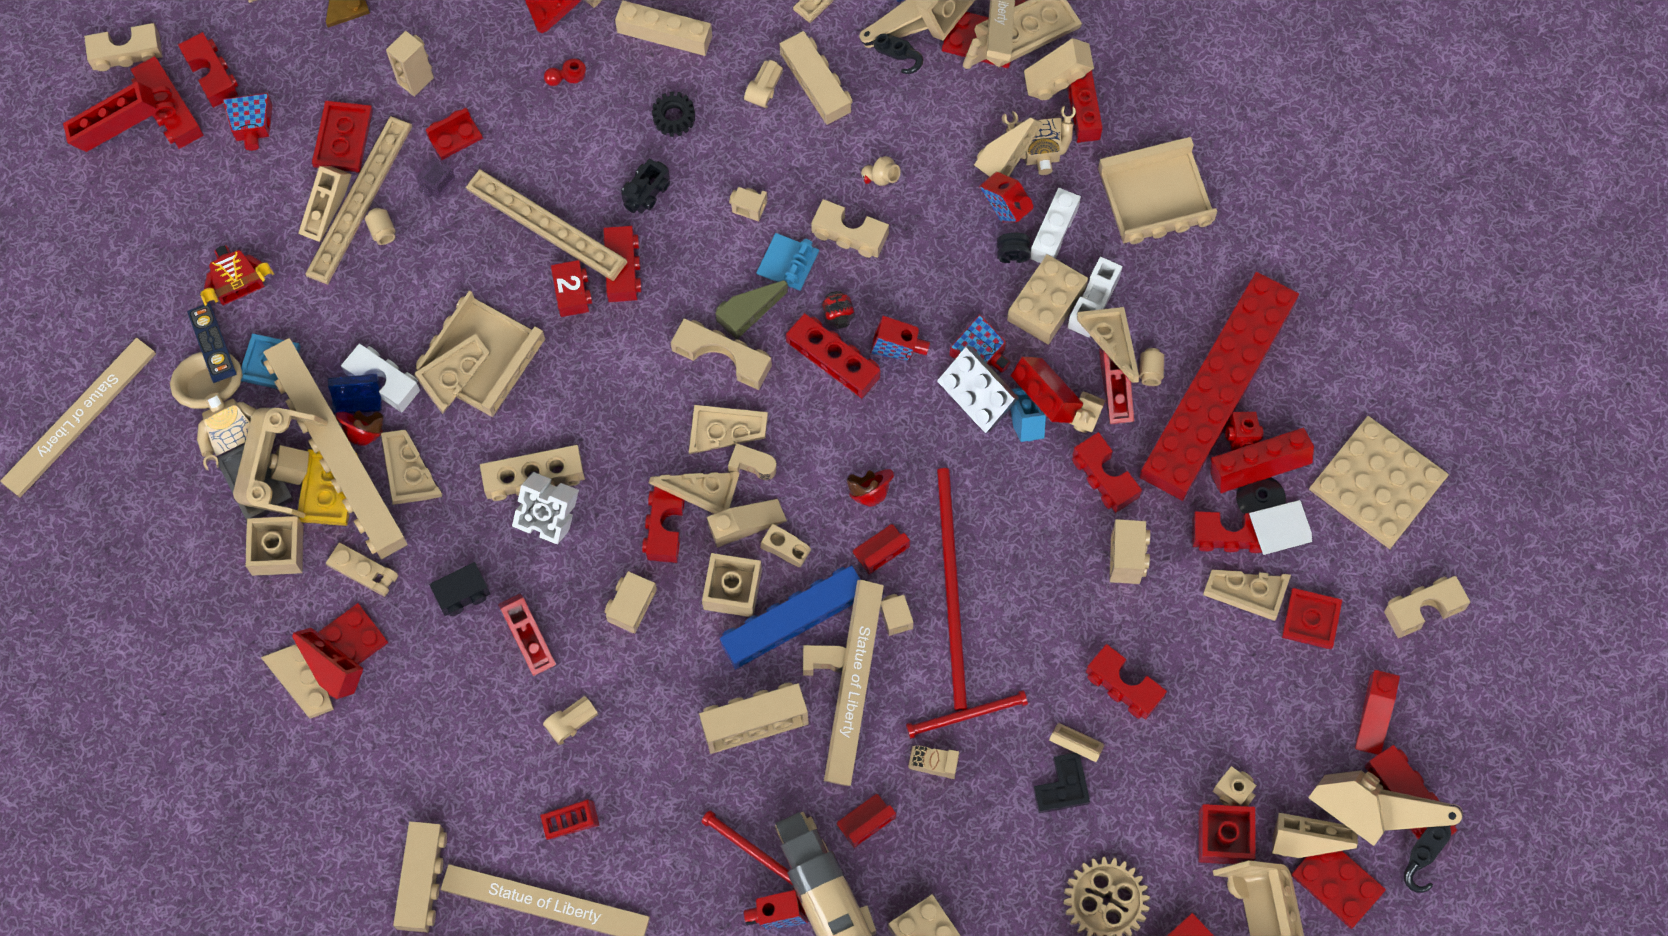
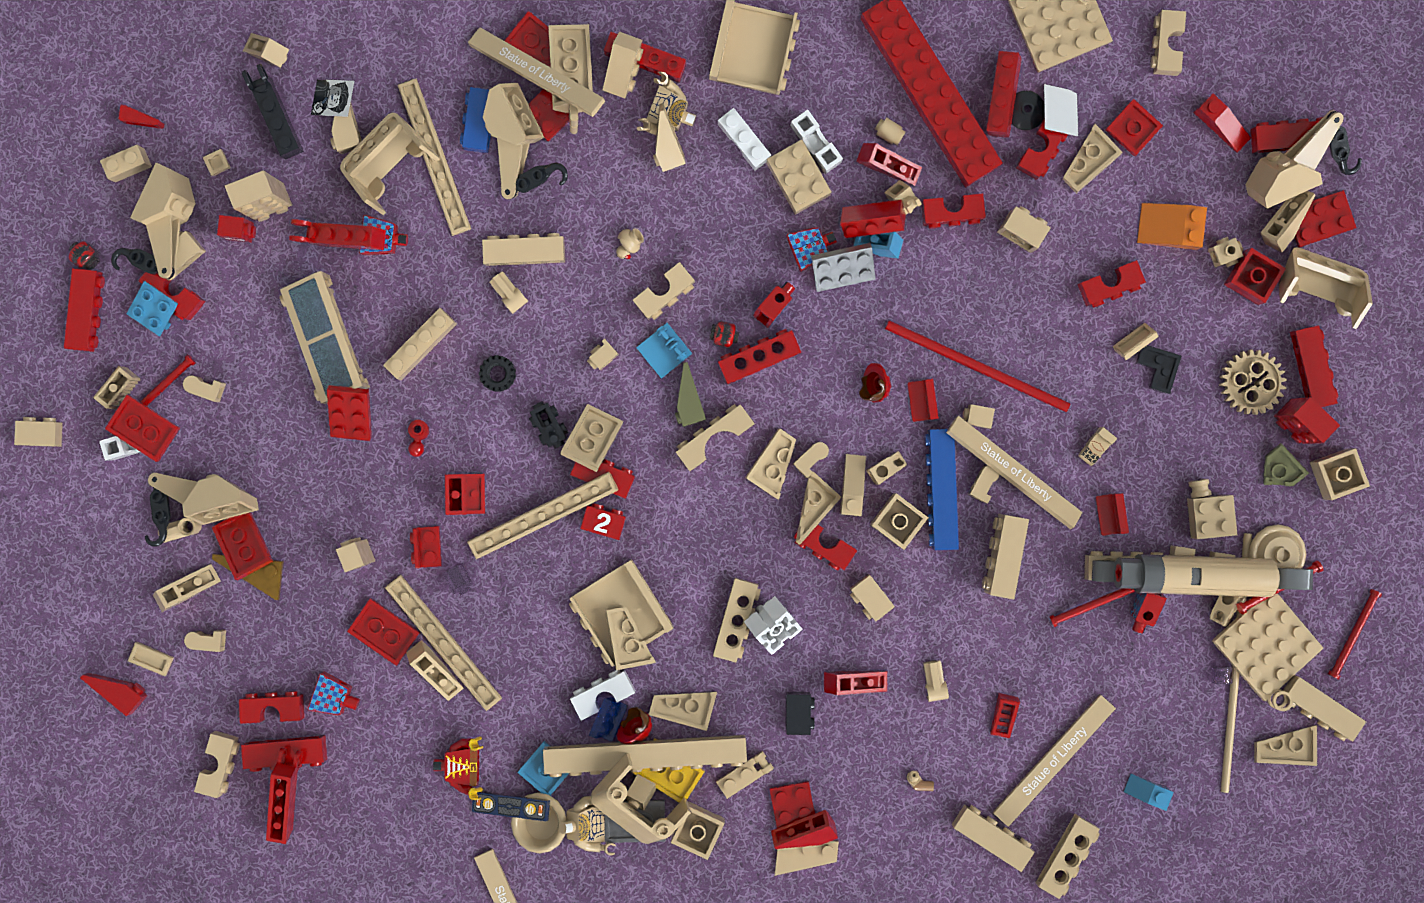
camera: 70 degrees left, 20 degrees up
(380, 226) = (476, 638): tan brick -> none
(443, 761) = (917, 782): none -> arm
(528, 140) = (464, 494): none -> red brick
(654, 230) = (591, 438): none -> tan plate
(951, 903) = (1200, 488): none -> tan wheel
(967, 714) = (1074, 405): red bar -> none
(1006, 197) = (715, 162): red torso -> none
(1013, 247) = (745, 179): black wheel -> none
(1112, 334) = (860, 148): tan wing -> none
(1230, 716) = (1172, 225): none -> orange slope
(1243, 429) = (976, 94): red brick -> none

